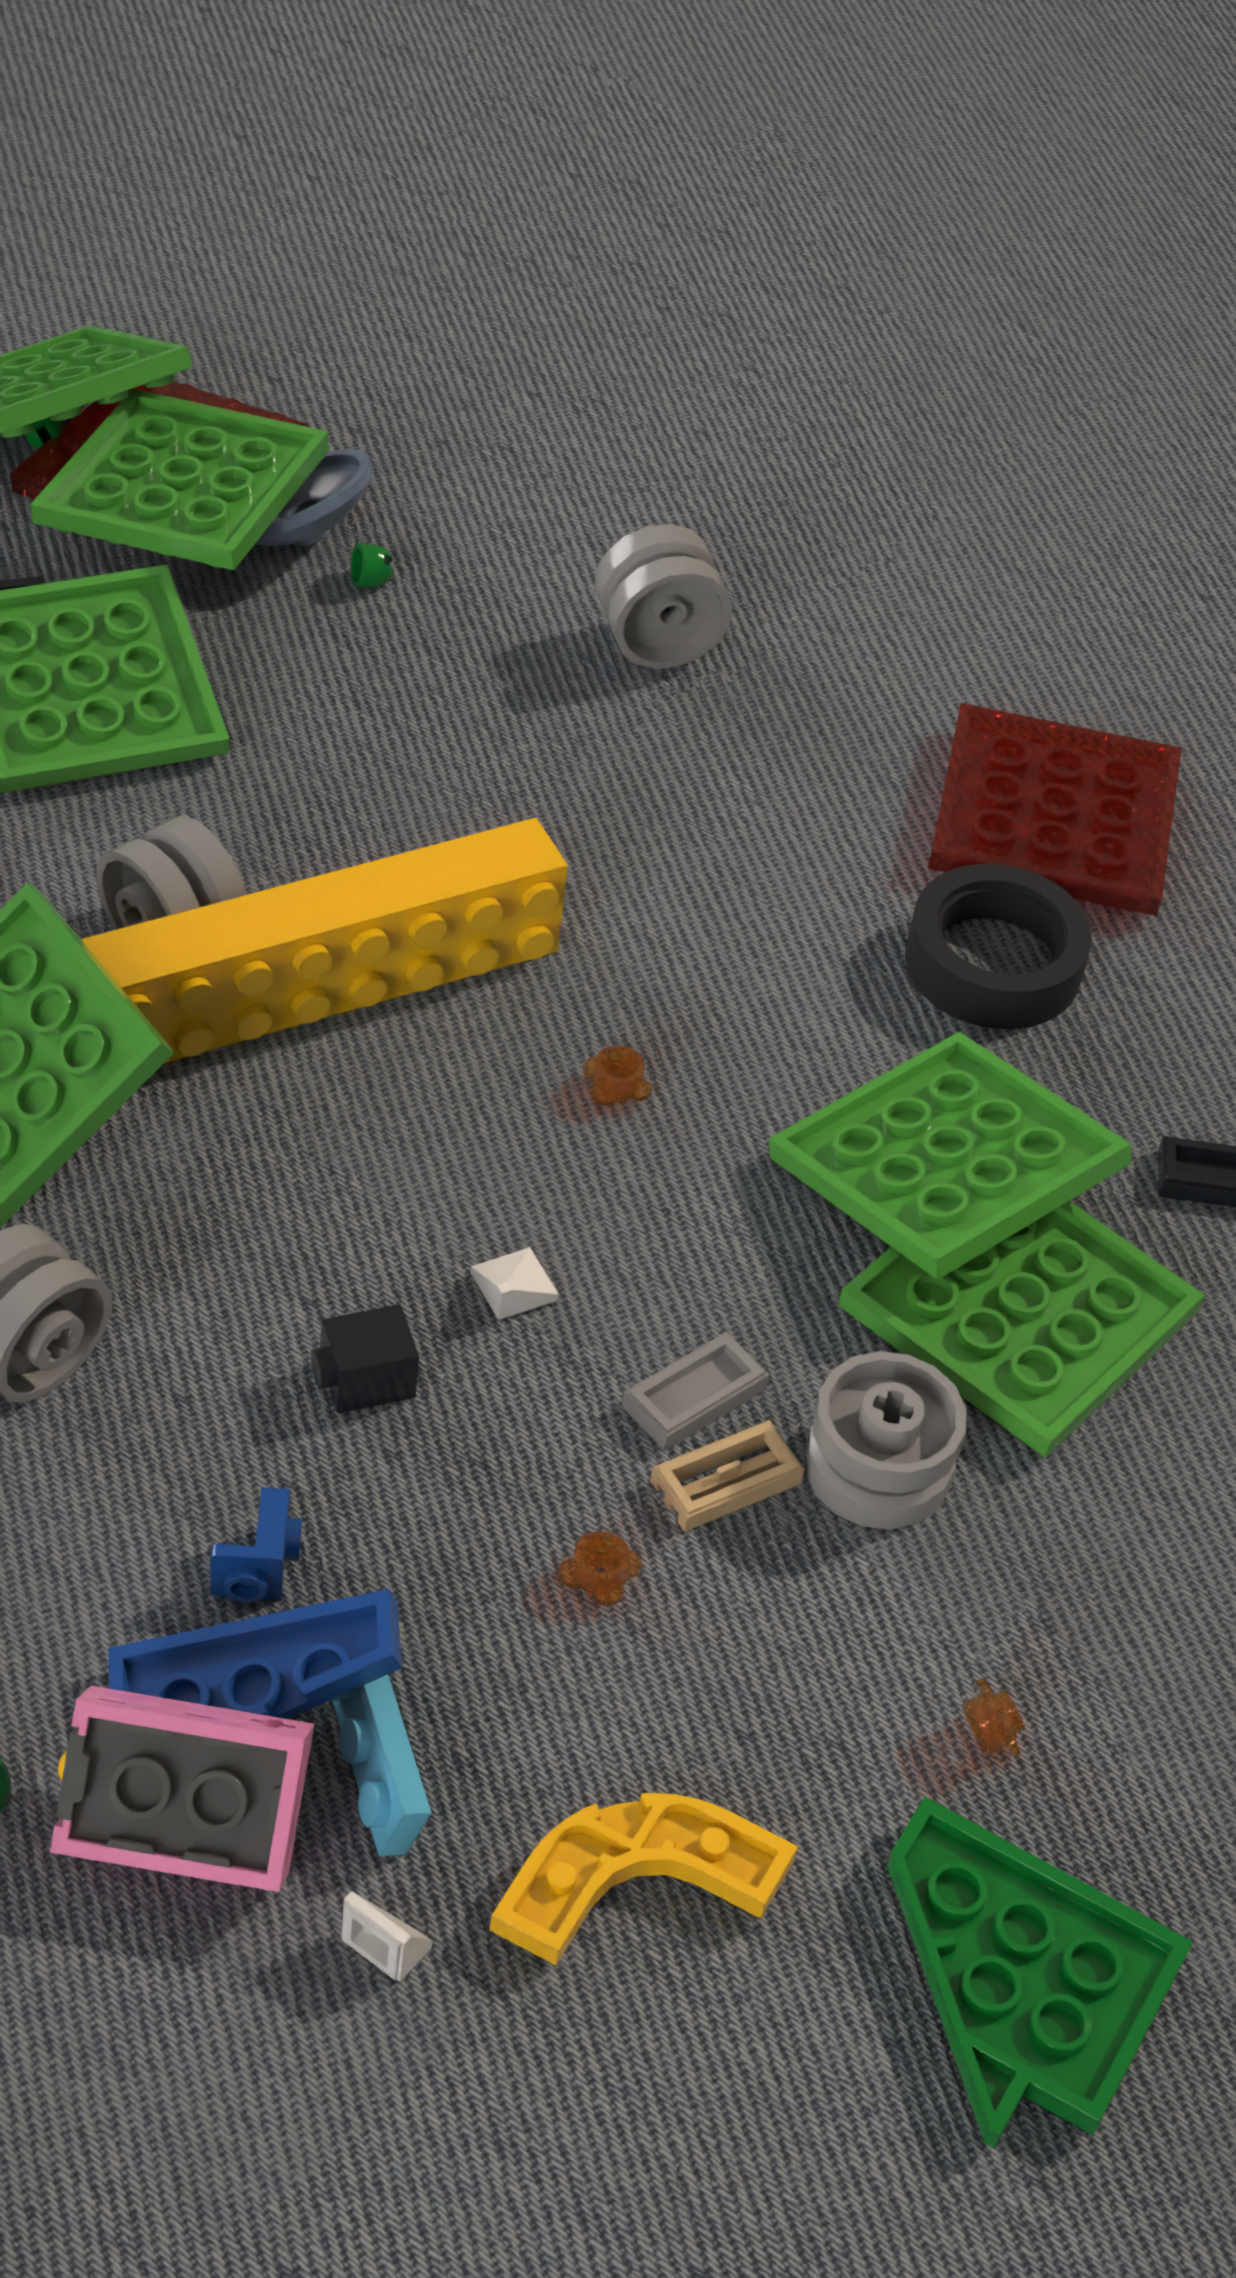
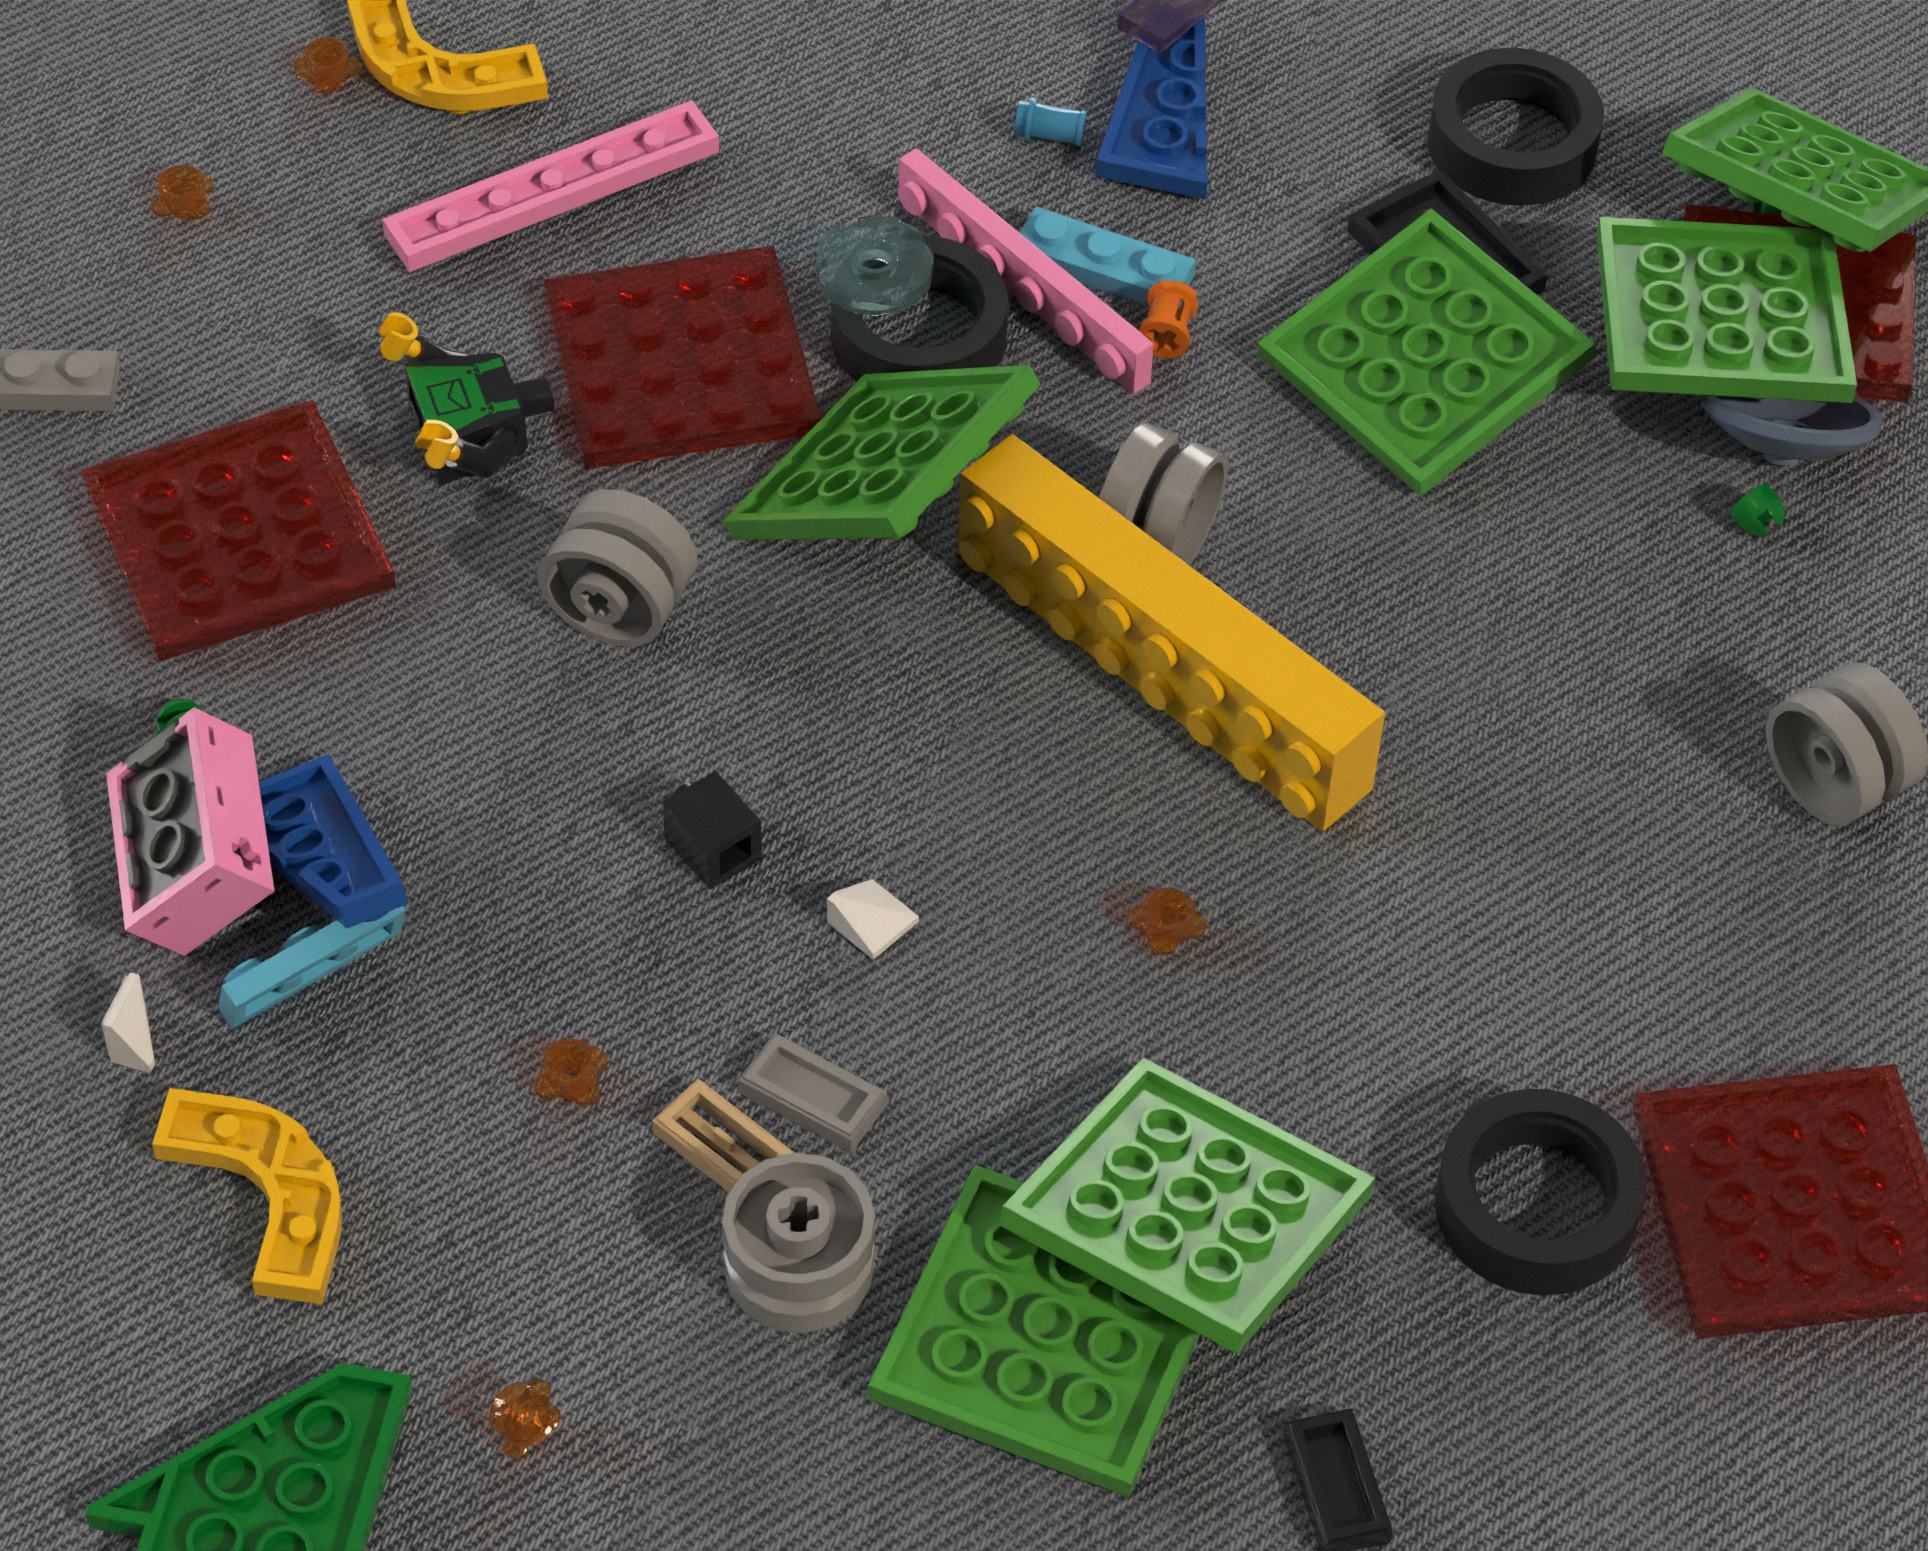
camera: 75 degrees right, 5 degrees up
(258, 1570) = (475, 825): blue bracket -> none

